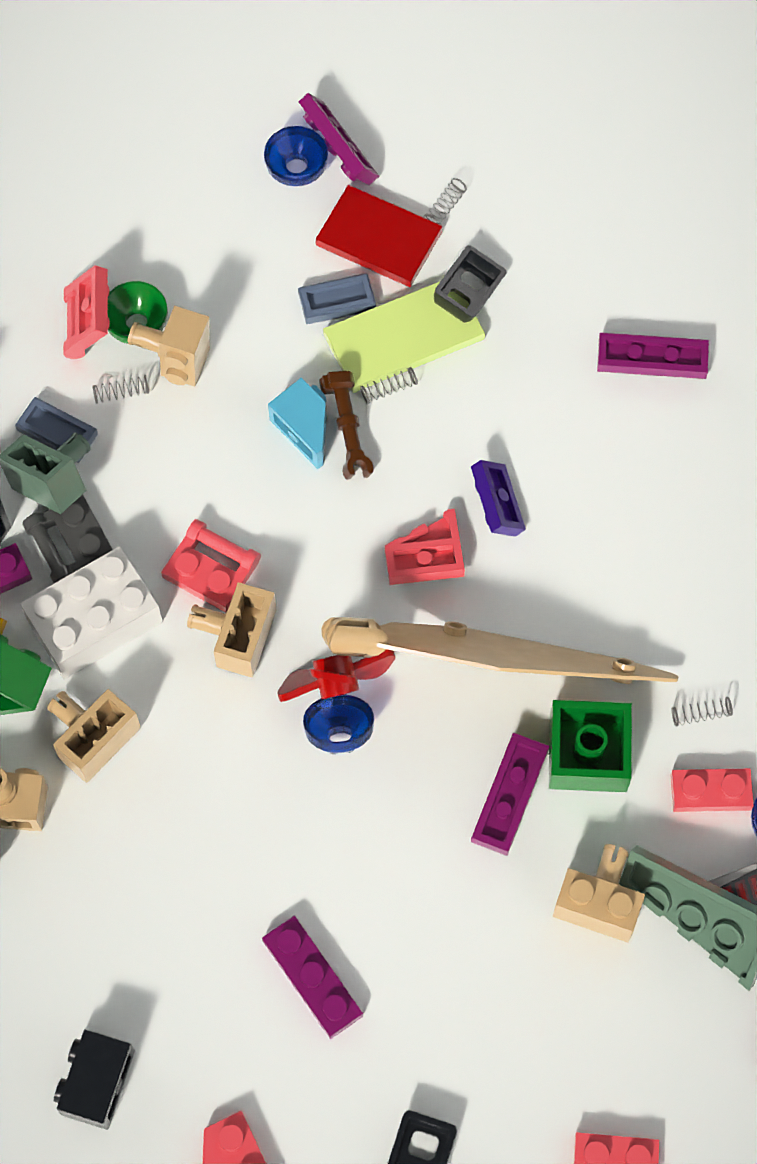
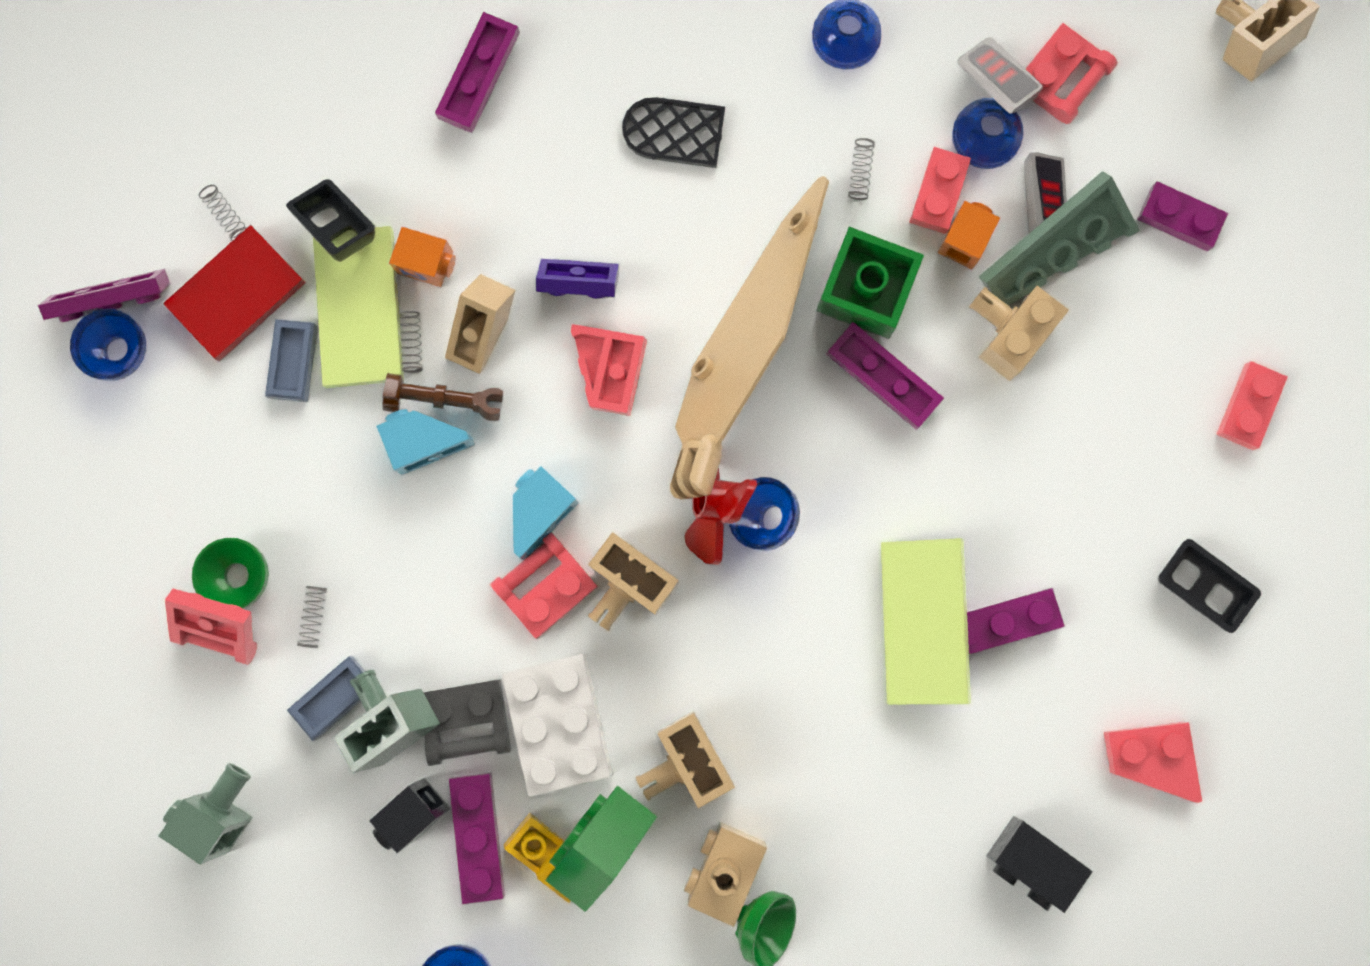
camera: 70 degrees left, 15 degrees up
(180, 347) = (292, 541): tan brick -> none
(276, 533) = (538, 509): none -> medium azure slope
(289, 902) = (925, 622): none -> yellowish green tile
(426, 431) = (479, 322): none -> tan slope
(466, 367) = (422, 257): none -> orange brick
(677, 826) = (969, 234): none -> orange brick
(678, 576) = (669, 103): none -> black window

